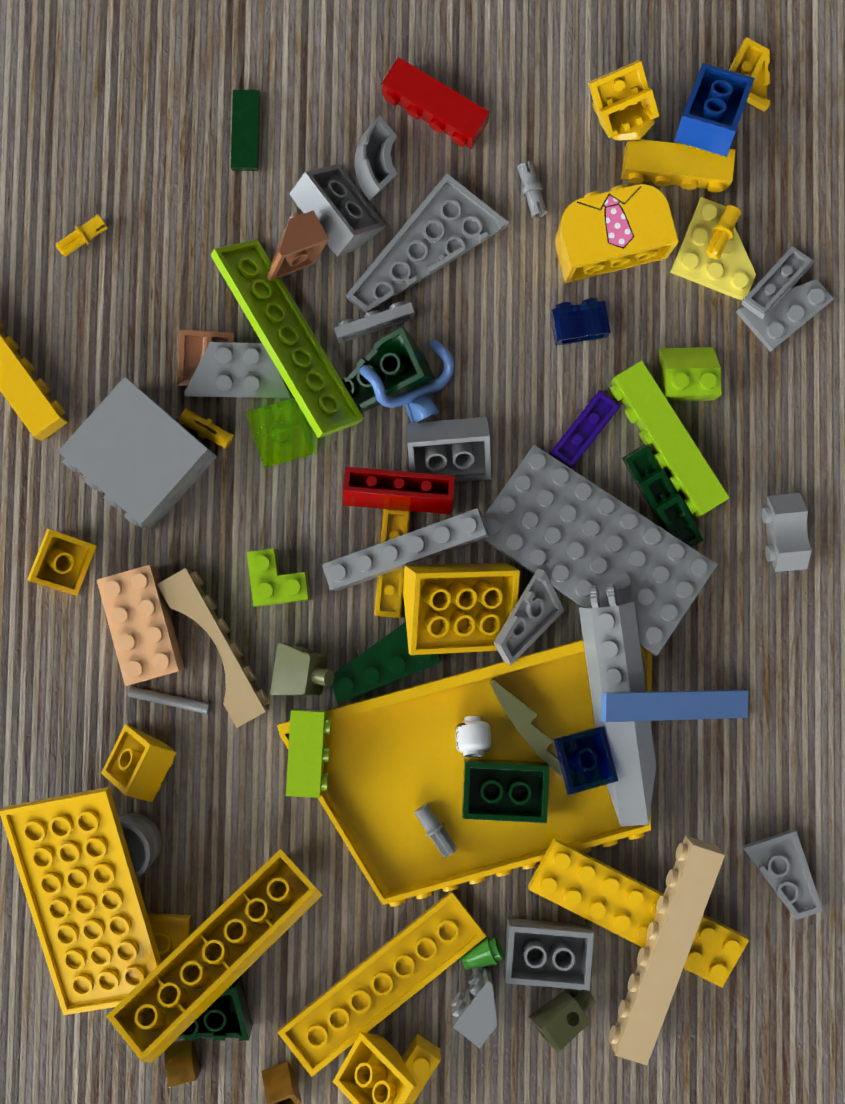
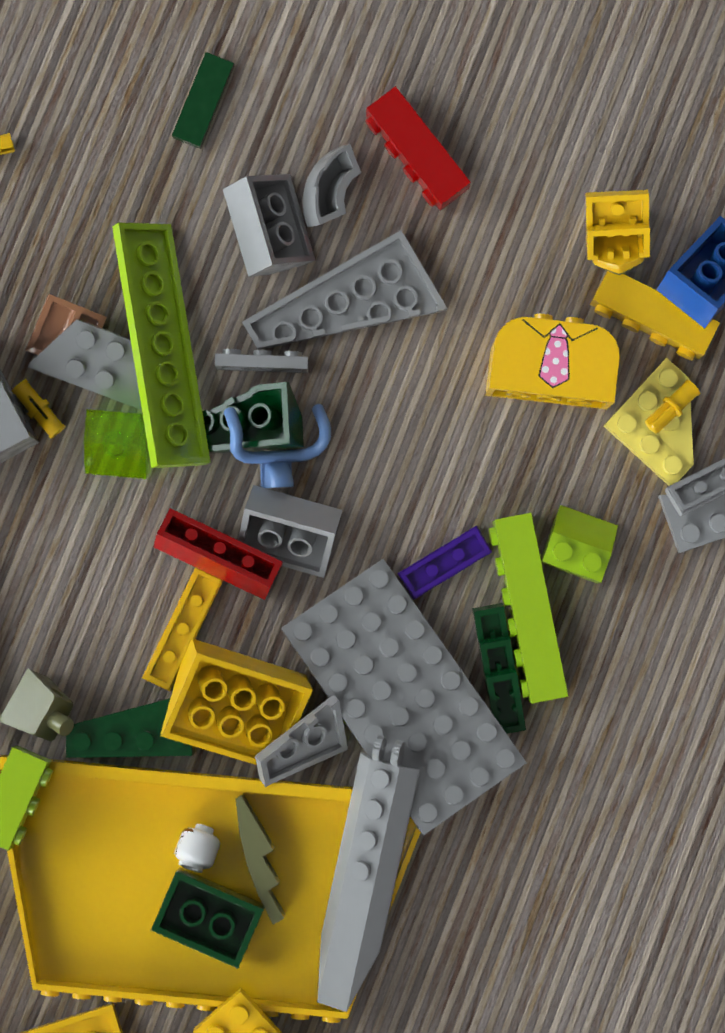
camera: 15 degrees right, 0 degrees up
(269, 585) = (41, 601): lime brick -> none
(298, 245) = (209, 251): nougat slope -> none
(405, 550) = (200, 622): light grey brick -> none
(435, 830) = (119, 932): light grey axle -> none
(532, 189) = (487, 281): light grey pin -> none
(580, 322) = (482, 444): clear blue brick -> none
(585, 759) = (304, 917): clear blue slope -> none
(673, 705) = (422, 895): medium blue tile -> none
(786, 532) = (617, 756): light grey brick -> none

